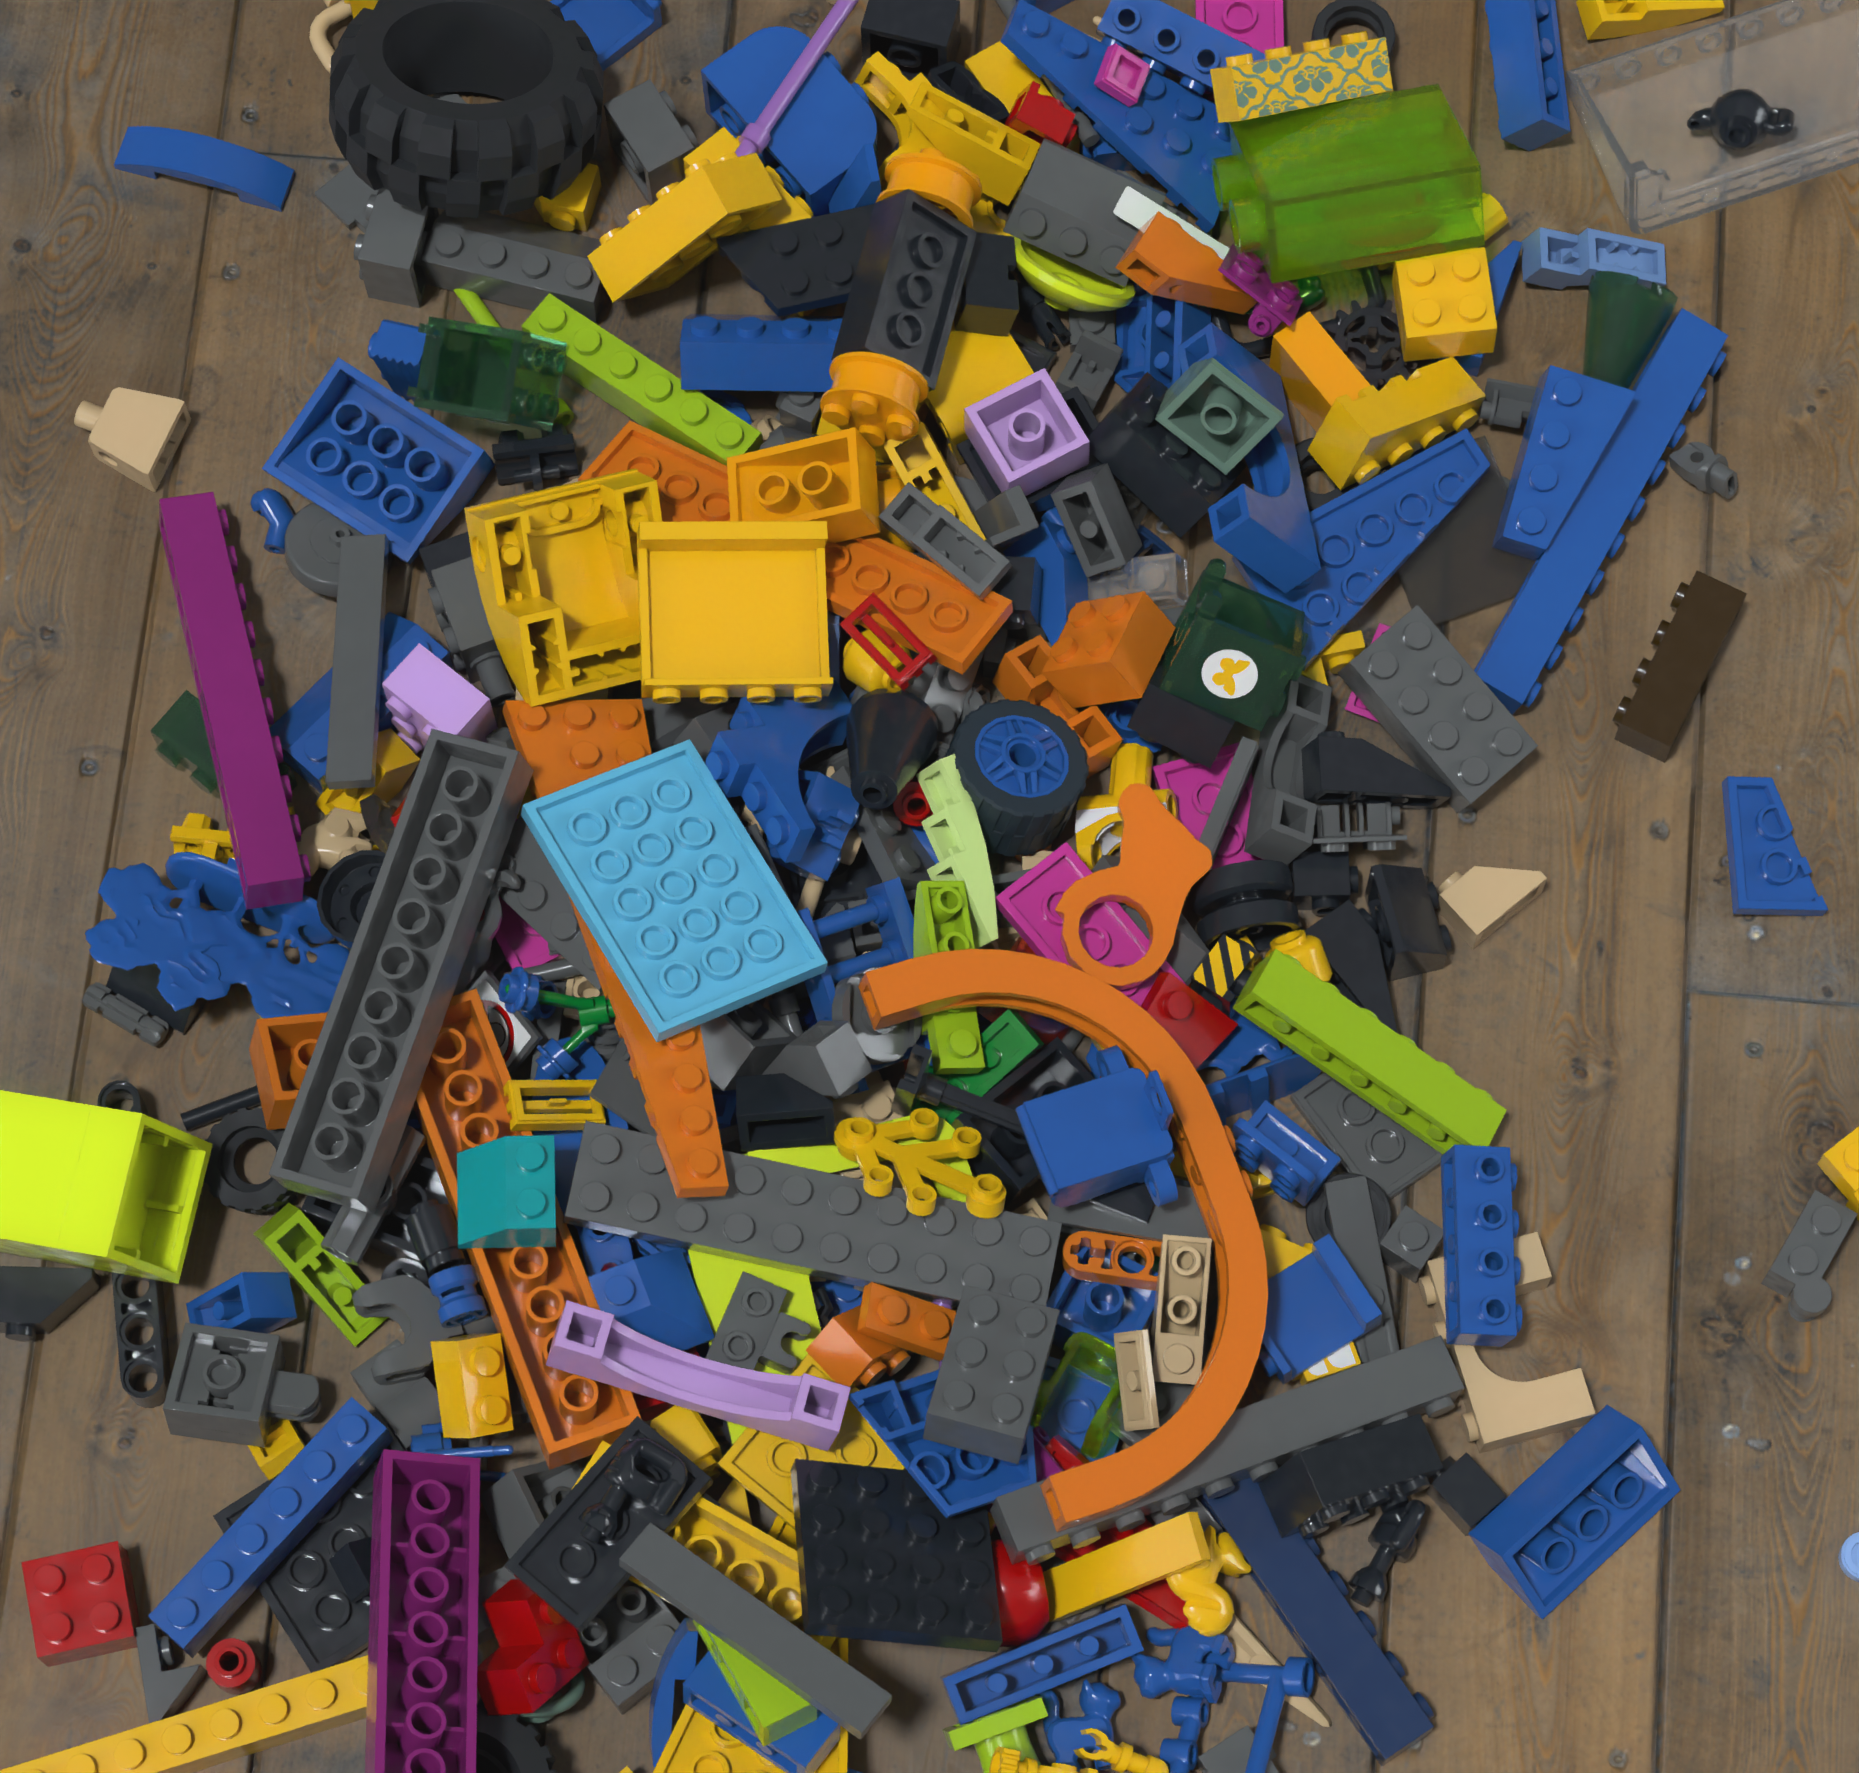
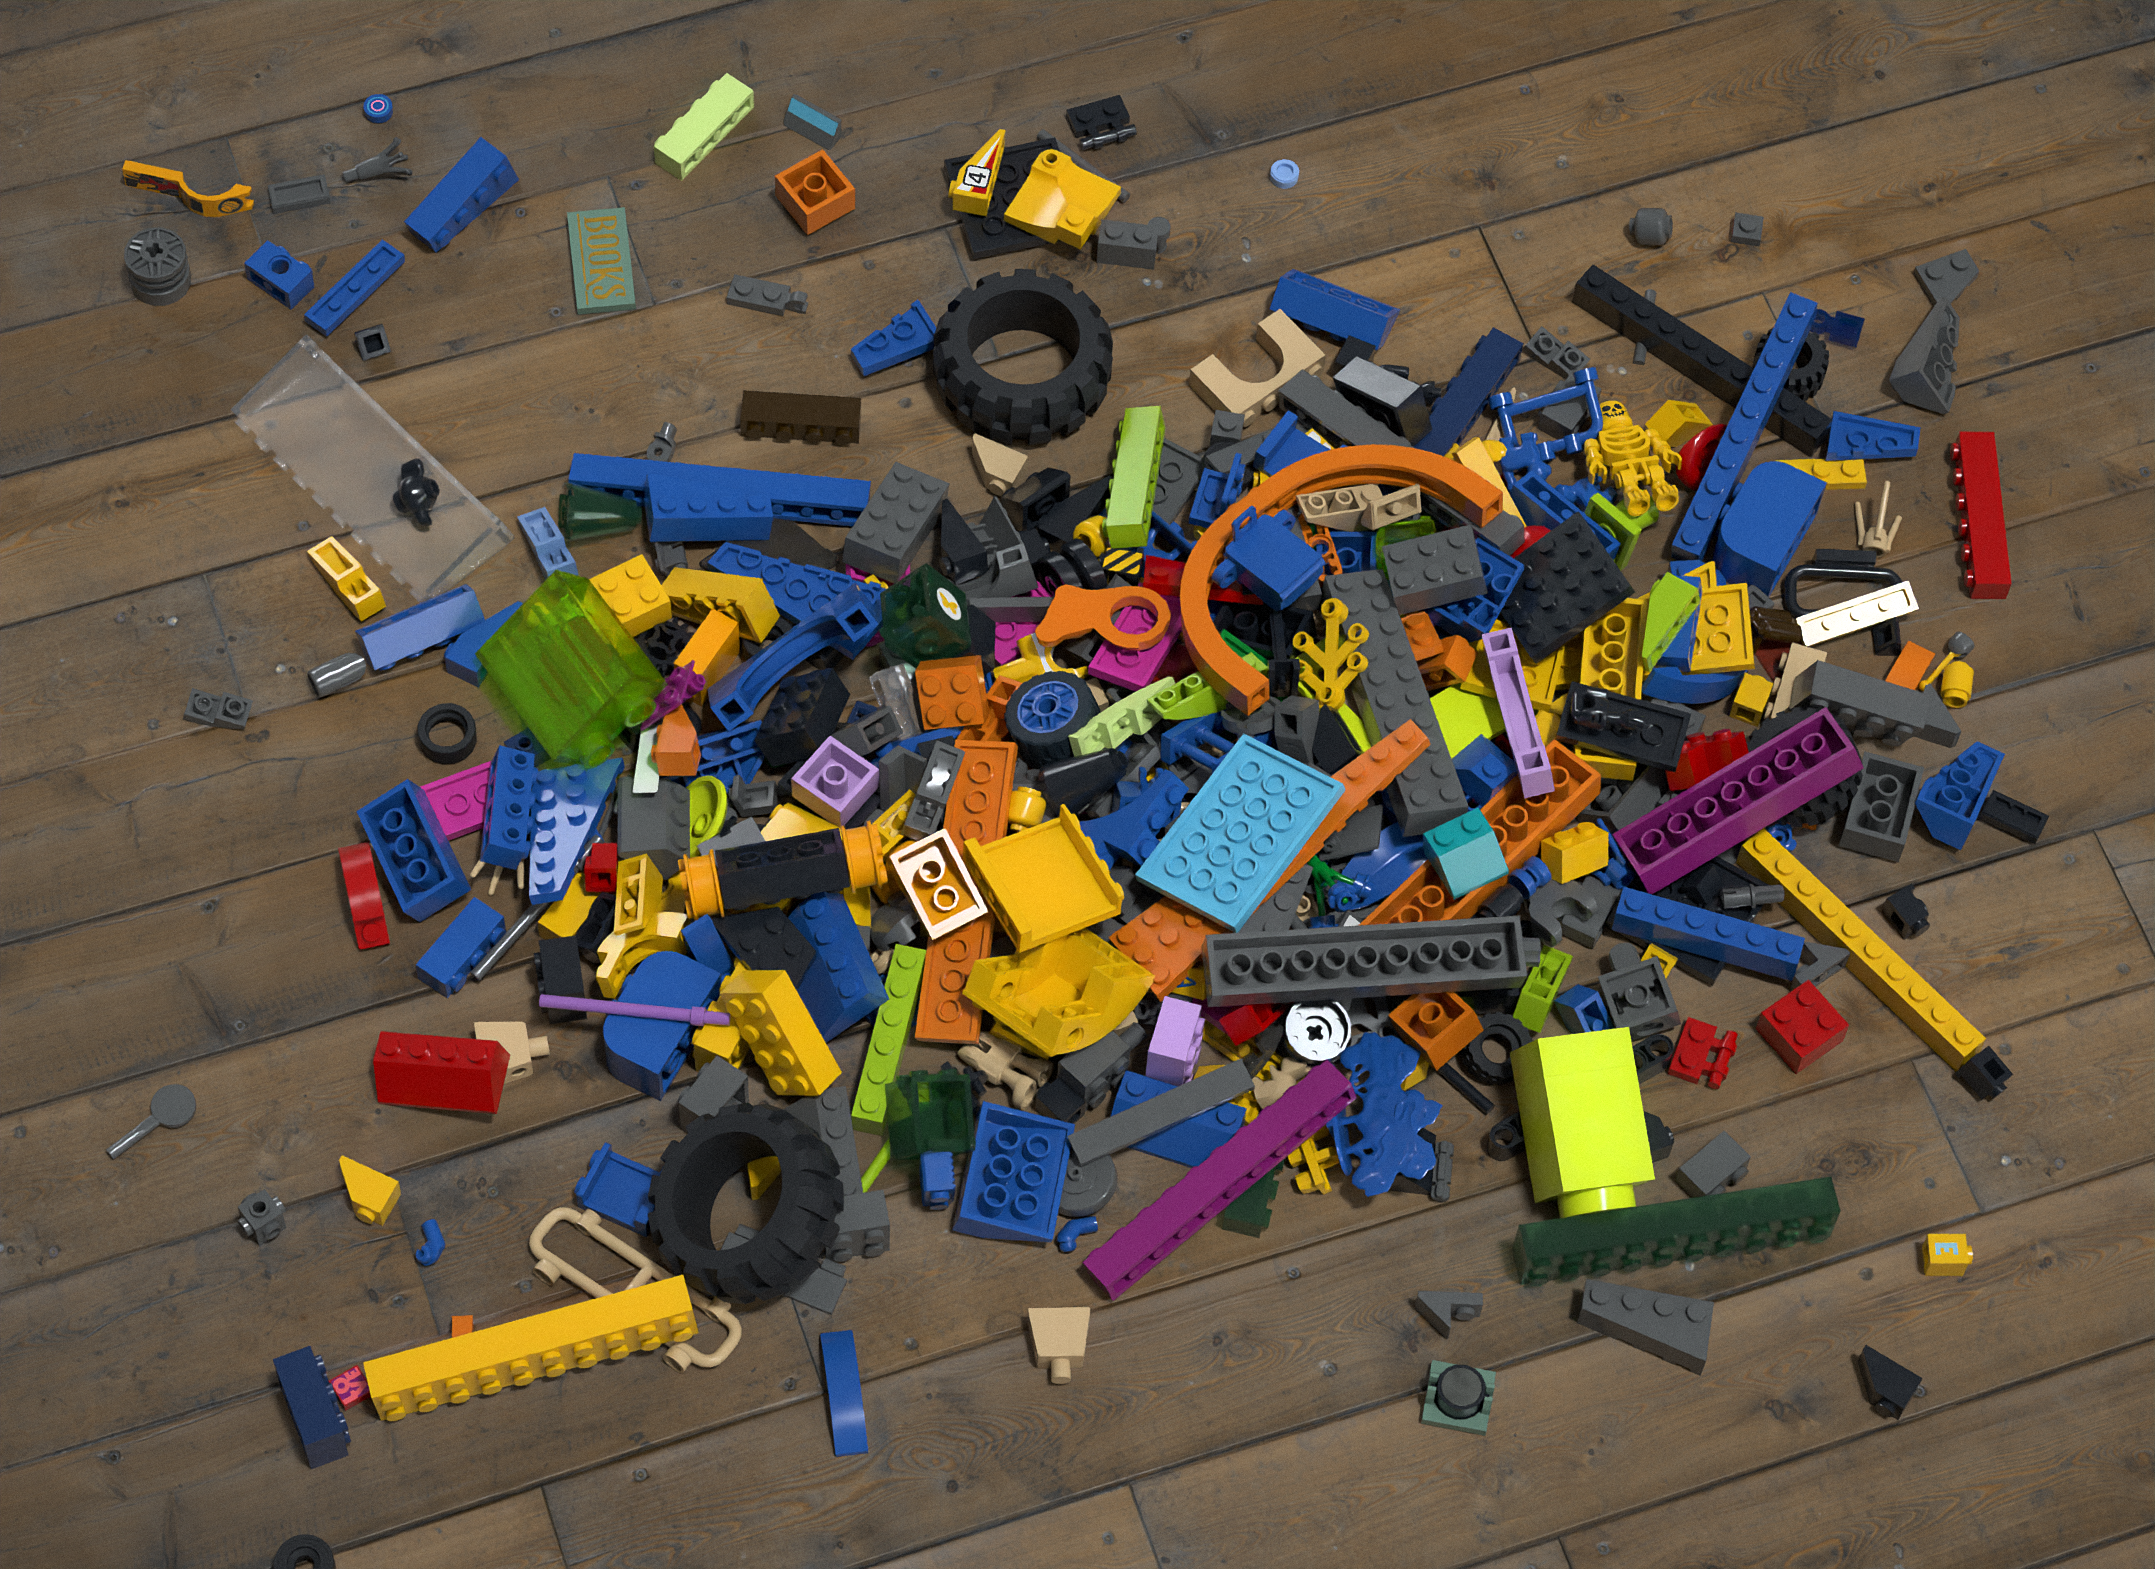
camera: 120 degrees left, 10 degrees down
(132, 1441) = (1693, 1050): none -> red plate
(244, 1676) = (1794, 922): red brick -> none
(304, 1629) = (1752, 895): none -> dark grey axle
(576, 1110) = (1404, 879): yellow tile -> none
(754, 1328) = (1467, 712): dark grey plate -> none
(755, 1631) = (1647, 617): dark grey tile -> none
(913, 667) = (1007, 812): red tile -> none
(1122, 75) = (552, 826): dark pink tile -> none
(1217, 414) = (776, 679): sand green slope -> none
(1302, 78) = (509, 726): yellow brick -> none
(1476, 116) = (461, 655): none -> blue slope
(1480, 1246) = (1219, 384): blue brick -> none
(1669, 896) = (1028, 305): none -> black tyre

